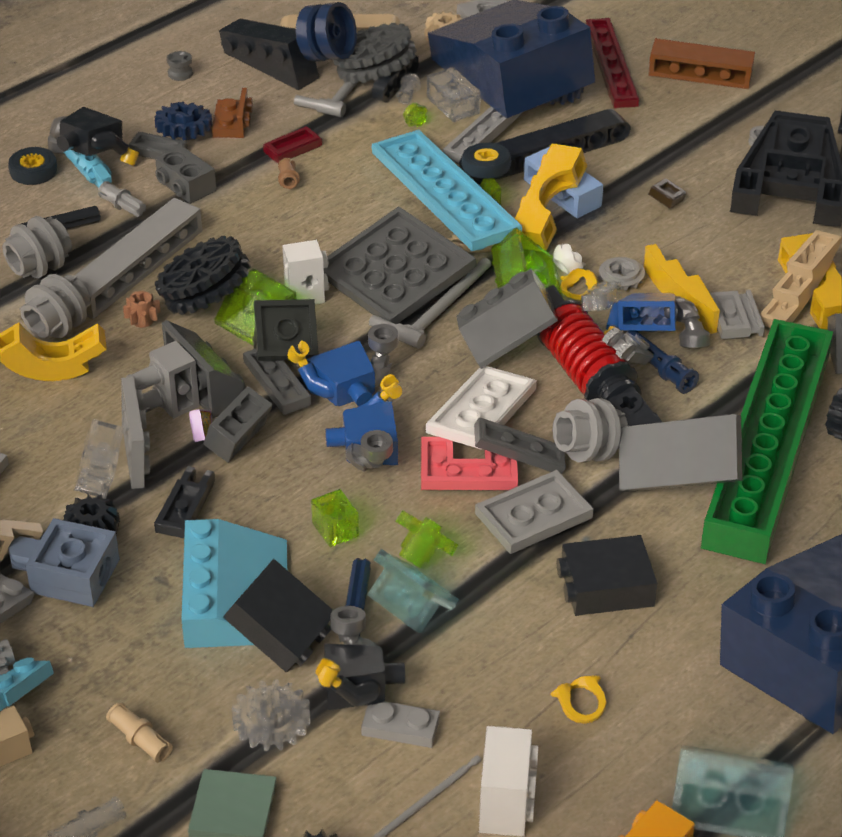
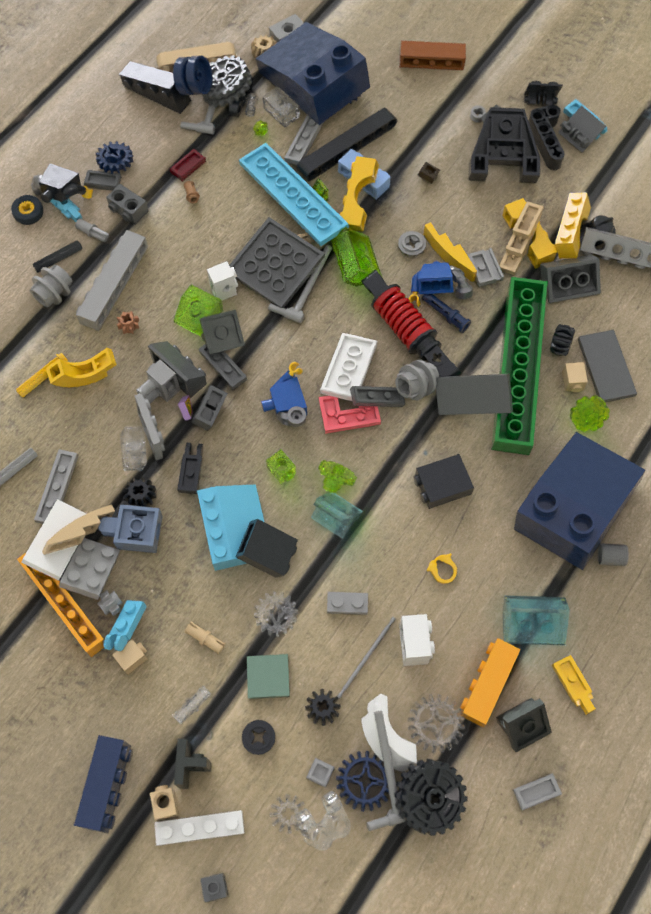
camera: 10 degrees left, 25 degrees up
(55, 306) = (75, 333): light grey piece -> none
(179, 65) = (99, 106): dark grey wheel -> none
(202, 275) = (160, 294): black piece -> none
(232, 116) = (143, 146): dark orange bracket -> none
(346, 372) = (263, 354): blue torso -> none
(355, 670) = (316, 575): black torso -> none
(358, 583) = (305, 526): dark blue axle -> none
(486, 160) = (318, 175): black bush -> none
(506, 317) = (354, 303): dark grey slope -> none
(533, 511) = (393, 440): light grey plate -> none
(567, 259) = (378, 240): white plate -> none
(573, 277) = (394, 252): yellow piece -> none
(601, 296) = (406, 273): clear beam -> none
(612, 64) = (375, 60): dark red tile -> none
(628, 346) = (430, 313): light grey hinge -> none

